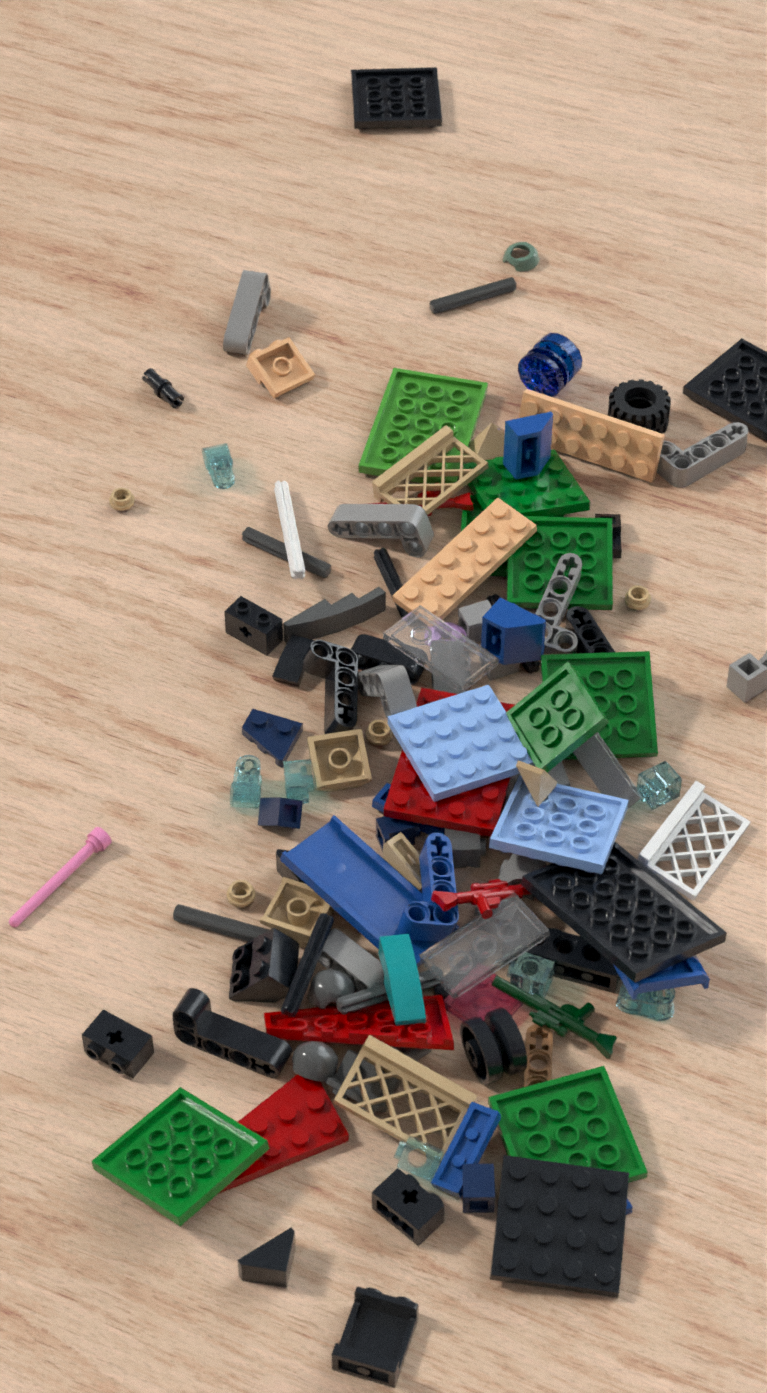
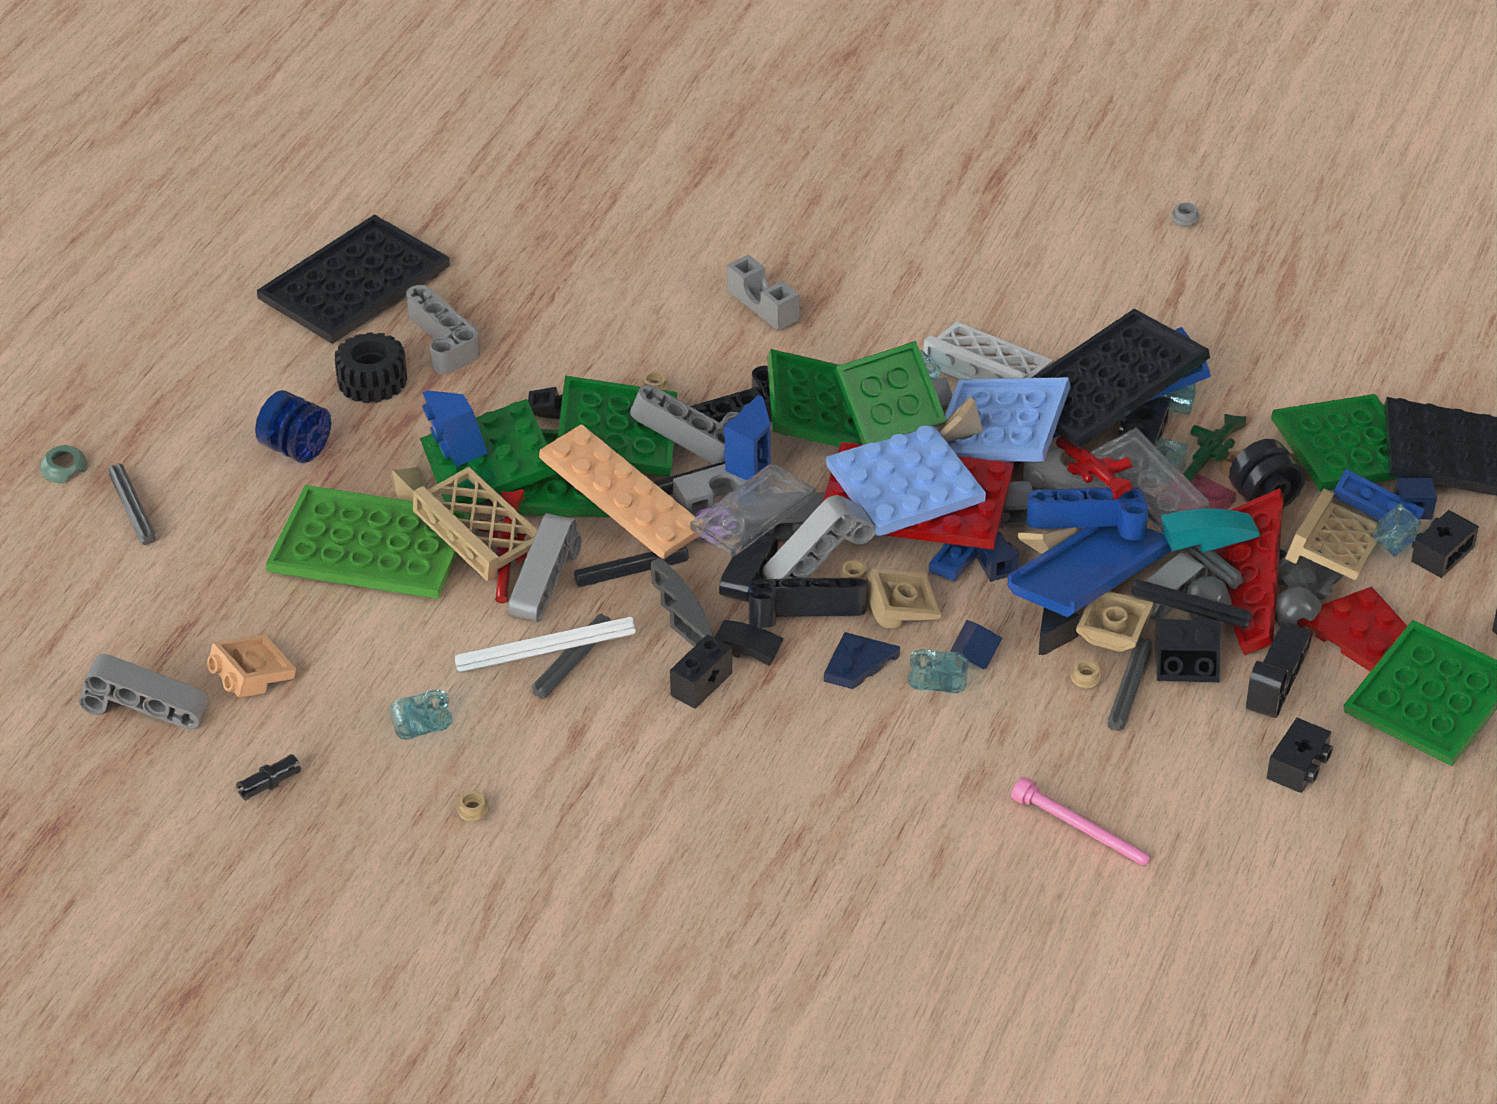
camera: 90 degrees left, 5 degrees down
(298, 779) = (933, 630): clear light blue brick -> none
(598, 436) = (399, 415): light nougat plate -> none

